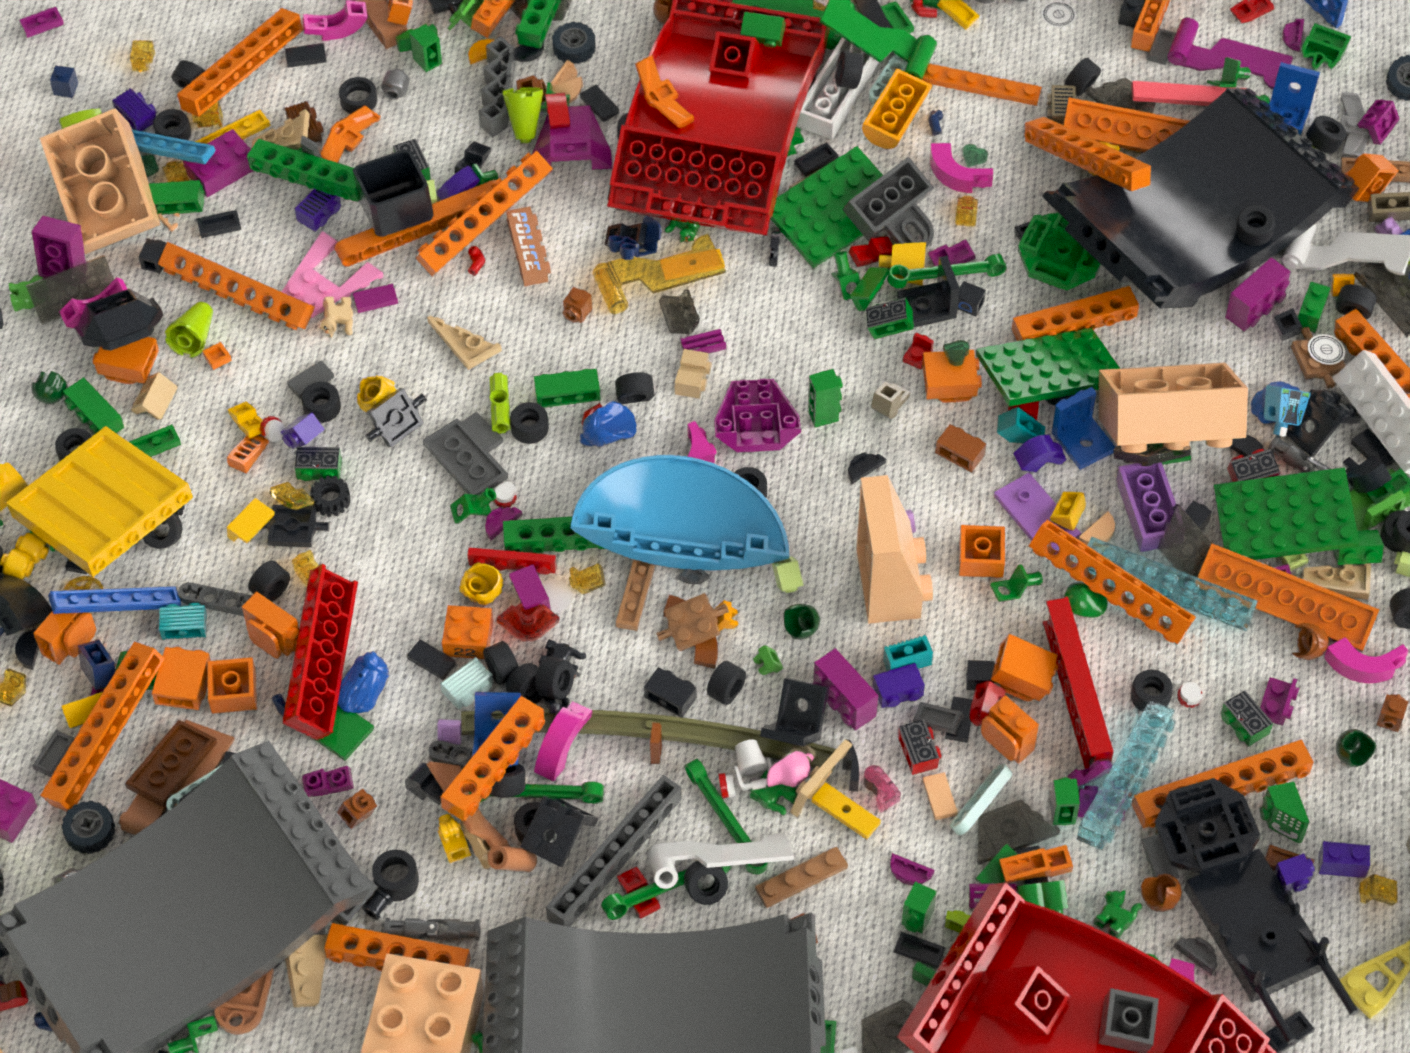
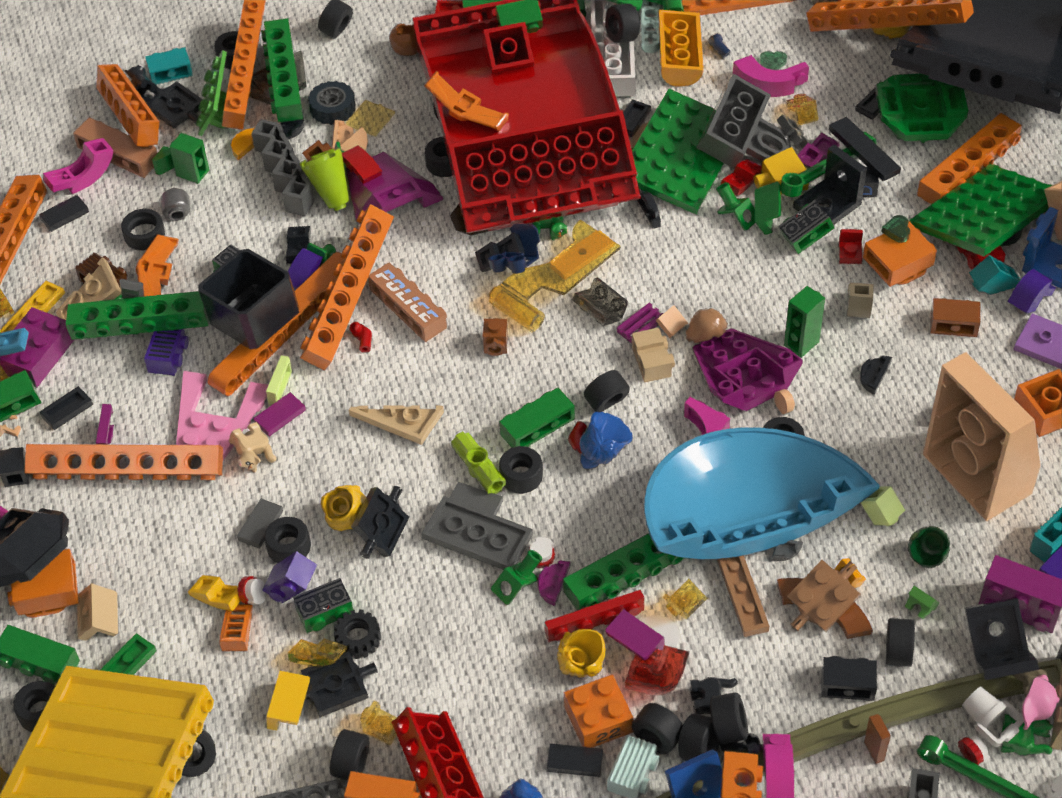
camera: 25 degrees left, 5 degrees down
(190, 330) = (101, 527): lime cone -> none
(217, 355) = (143, 540): orange plate -> none
(236, 254) = (105, 430): none -> magenta tile
(389, 270) = (279, 380): none -> yellowish green tile
(599, 69) = (370, 117): none -> clear yellow piece
(599, 103) = (394, 146): black tile -> none
(727, 352) = (671, 321): none -> light nougat tile
(750, 367) = (705, 325): none -> medium nougat hair
(772, 457) = (784, 401): none -> light nougat tile
(943, 226) = (792, 130): none -> dark grey plate
(984, 269) = (864, 149): none -> black tile

